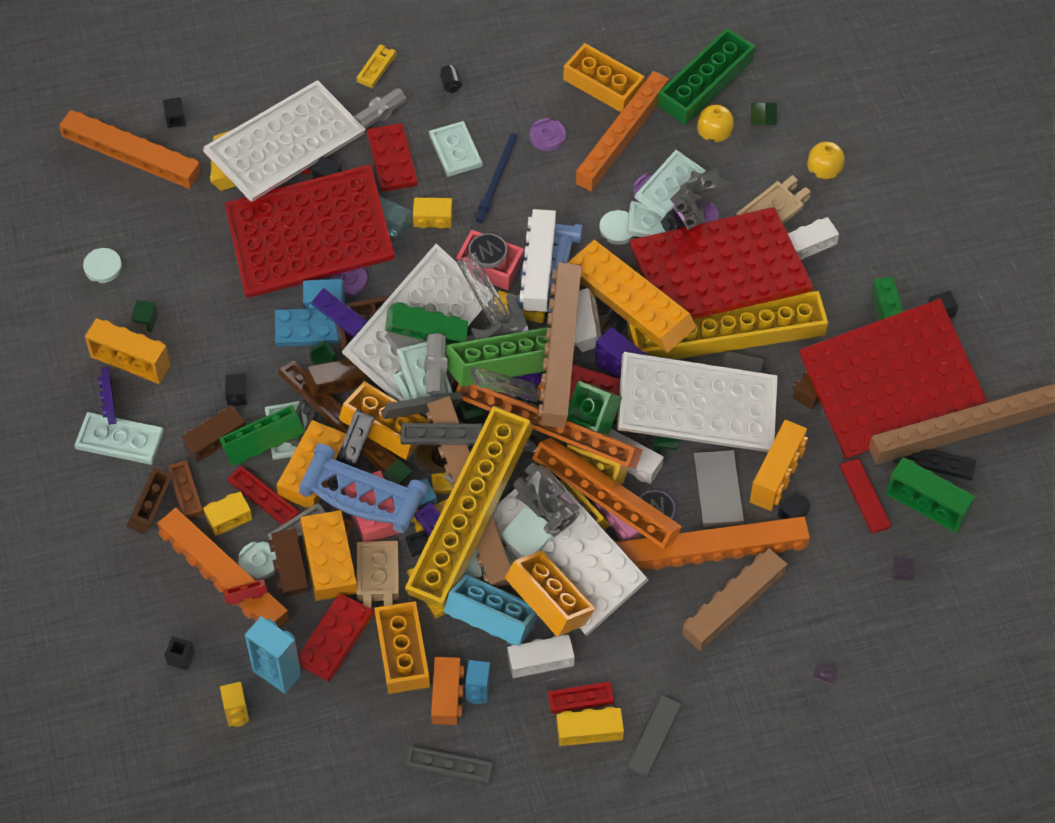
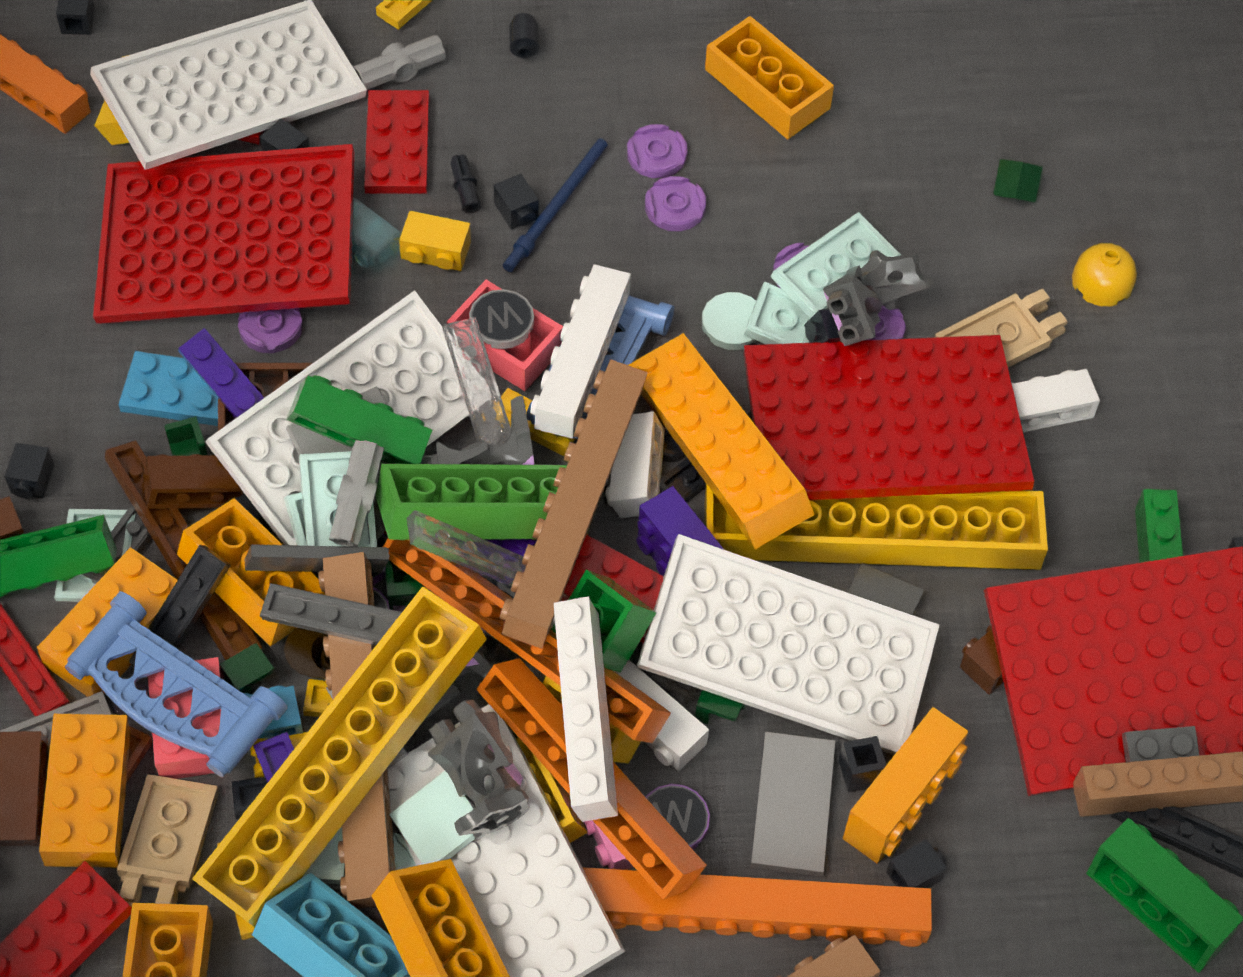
camera: 10 degrees right, 0 degrees up
(313, 287) = (233, 335): dark azure brick -> none
(440, 175) = (465, 184): none -> black axle
(455, 148) = (502, 145): light aqua tile -> none
(473, 180) = (516, 201): none -> black brick
(564, 163) = (675, 203): none -> medium lavender tile
(598, 454) = (585, 710): none -> white brick
(620, 132) = (777, 167): orange brick -> none
(705, 76) = (935, 103): green brick -> none
(715, 123) = (934, 181): yellow cylinder -> none
(751, 458) = (861, 762): none -> black brick
(865, 496) = (1048, 871): red tile -> none
(911, 416) = (1160, 744): none -> dark grey plate

